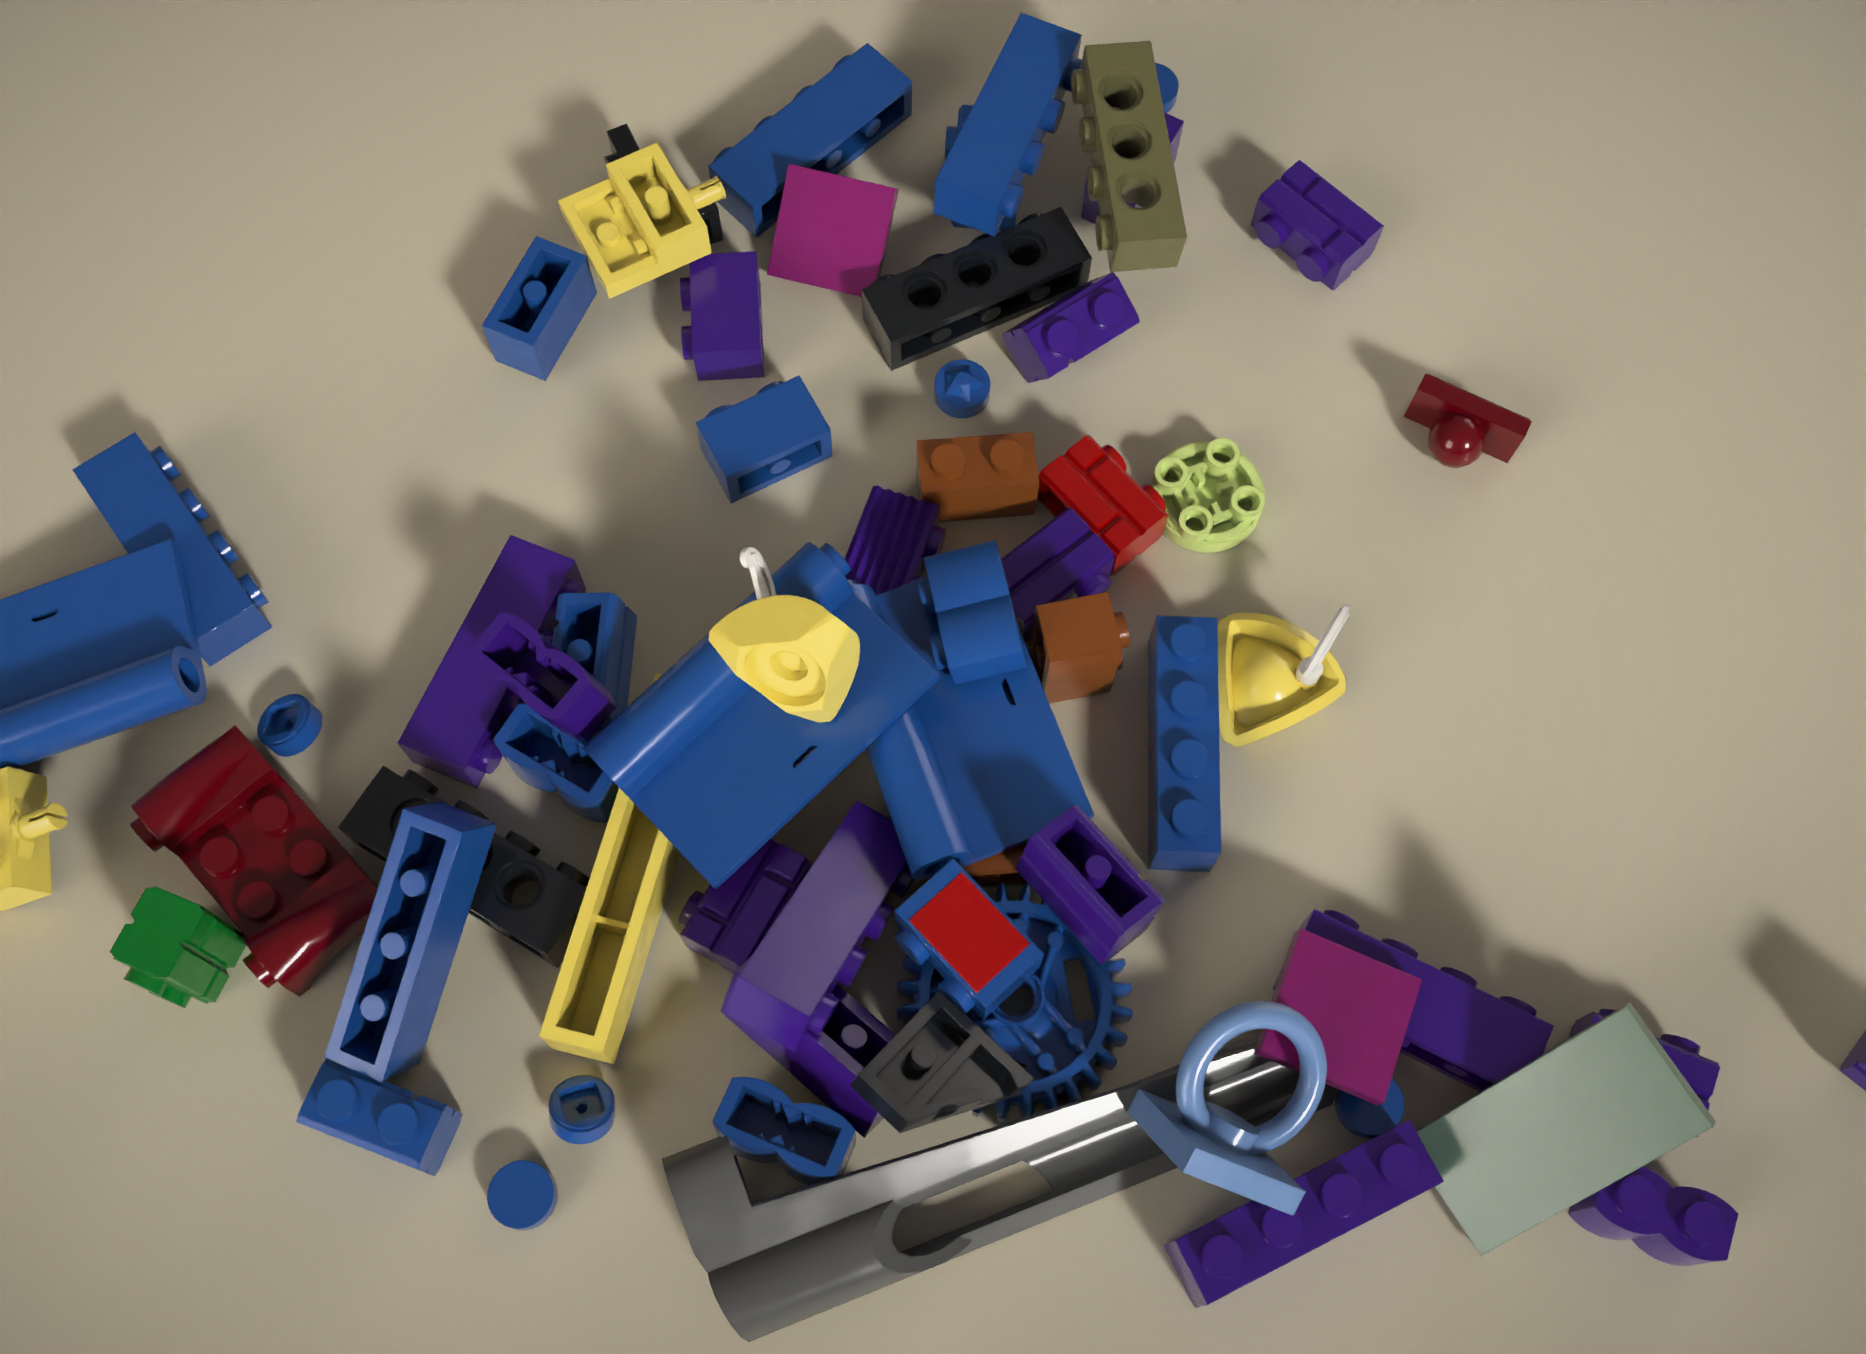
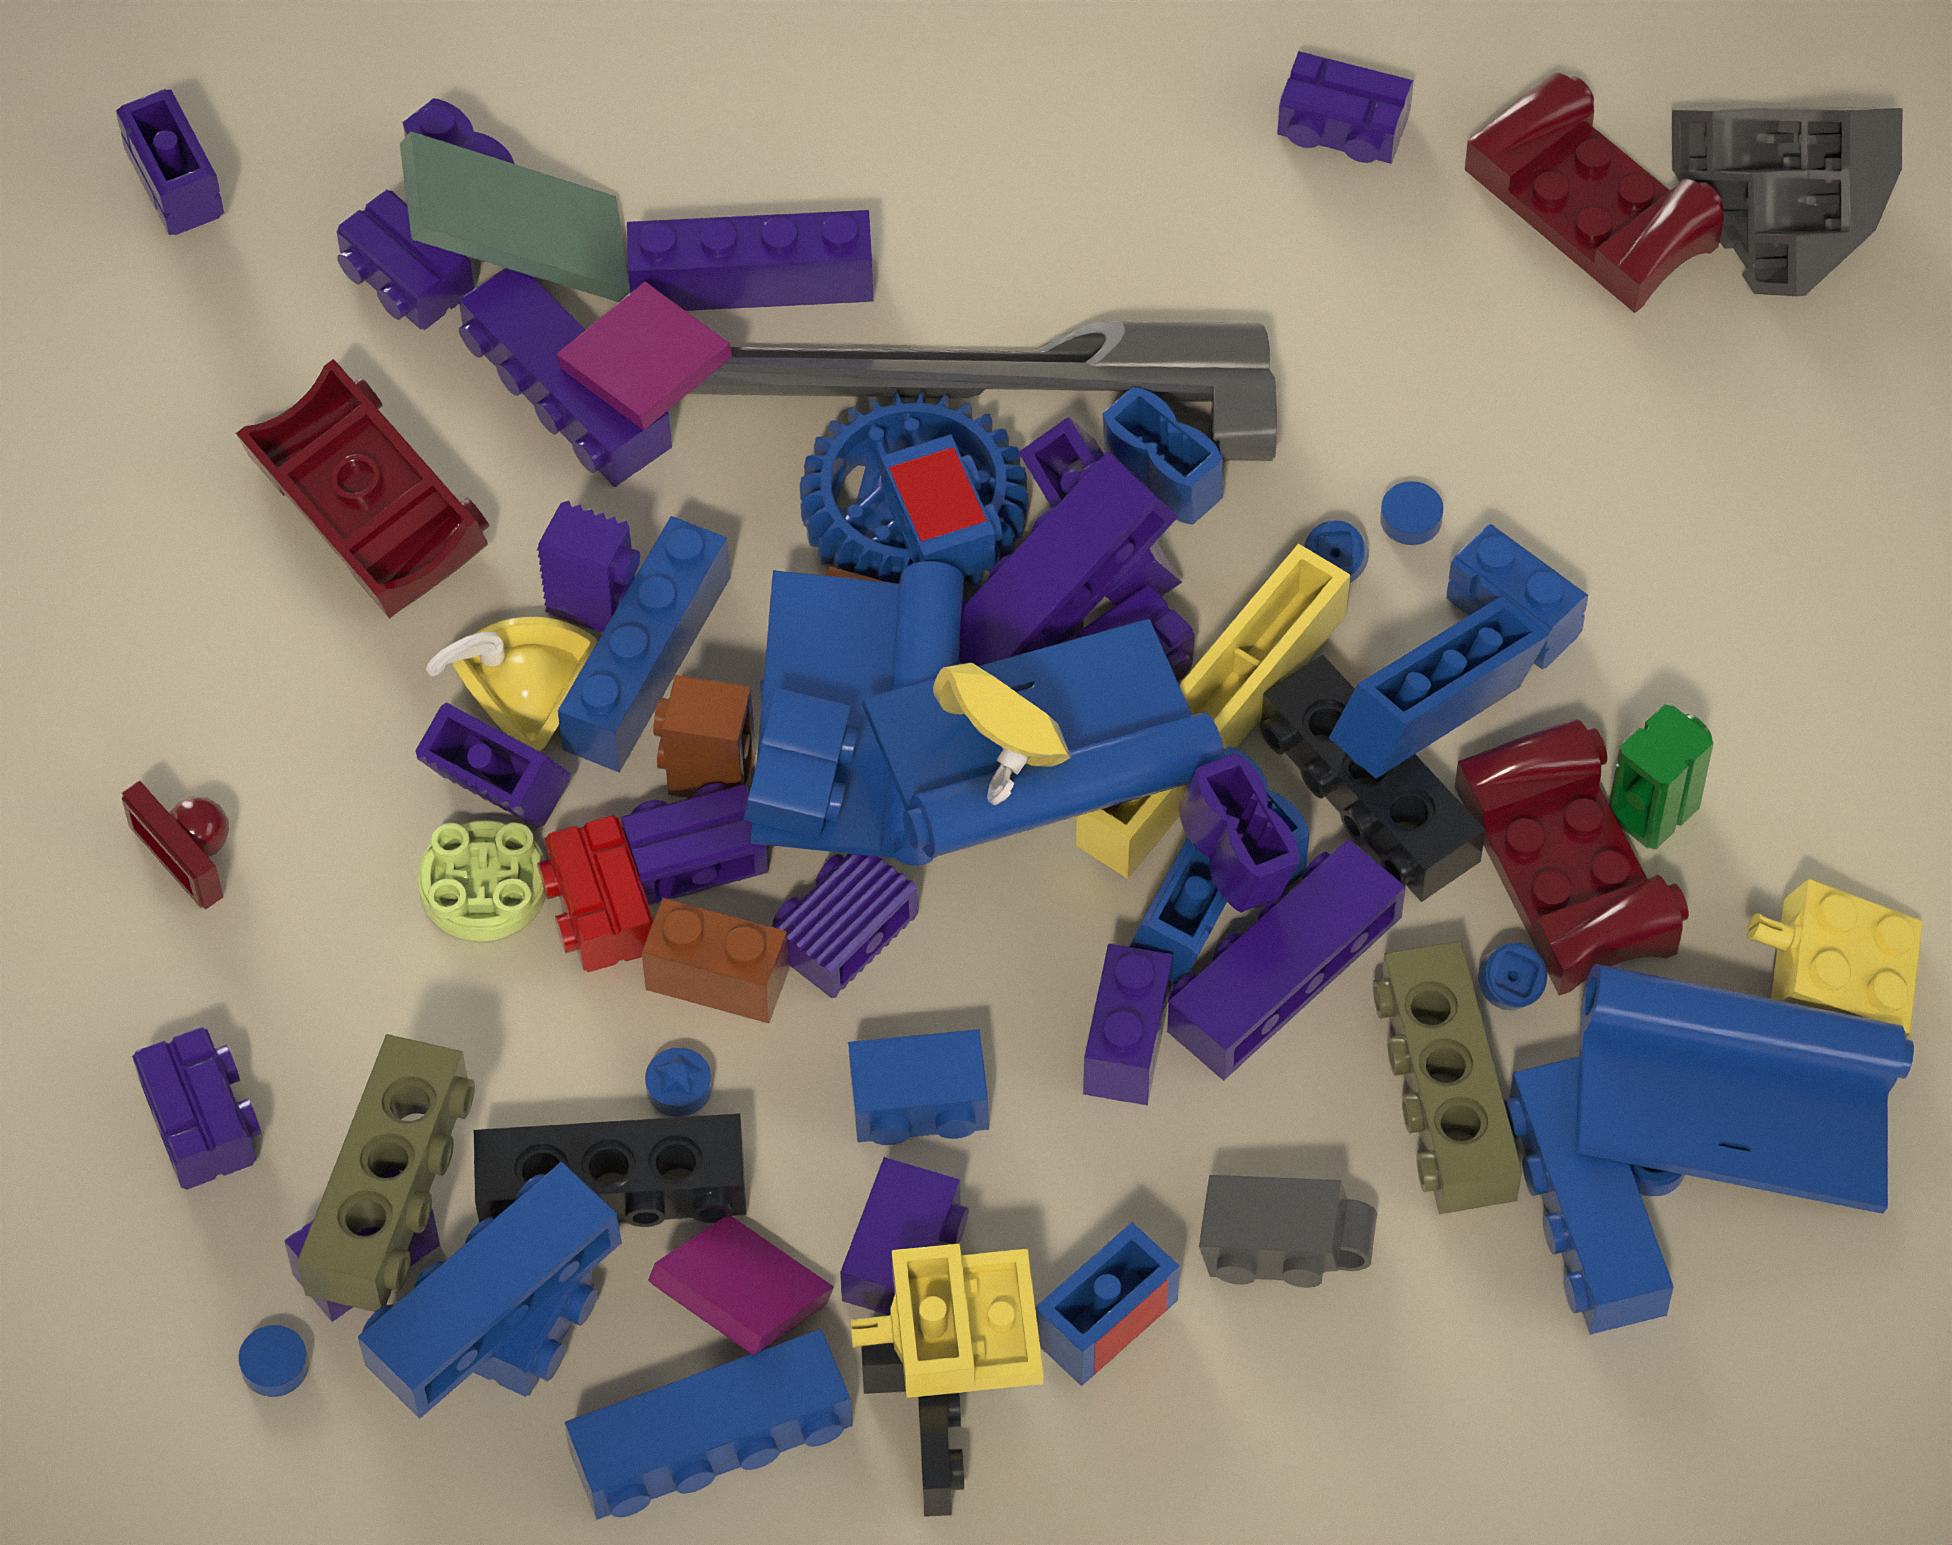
camera: 155 degrees left, 10 degrees down
(269, 538) = (1439, 984): none -> olive brick
(418, 422) = (1283, 1230): none -> dark grey hinge
(609, 541) = (1127, 1024): none -> dark purple brick
(938, 1069) = (1014, 422): black wing -> none
(1071, 328) = (536, 1074): dark purple brick -> none
(1089, 884) = (810, 503): dark purple brick -> none
(1220, 1144) = (803, 295): medium blue tile -> none
(1249, 566) = (492, 765): none -> dark purple brick
(1268, 775) = (586, 565): none -> dark purple brick
(1522, 793) = (366, 490): none -> dark red piece

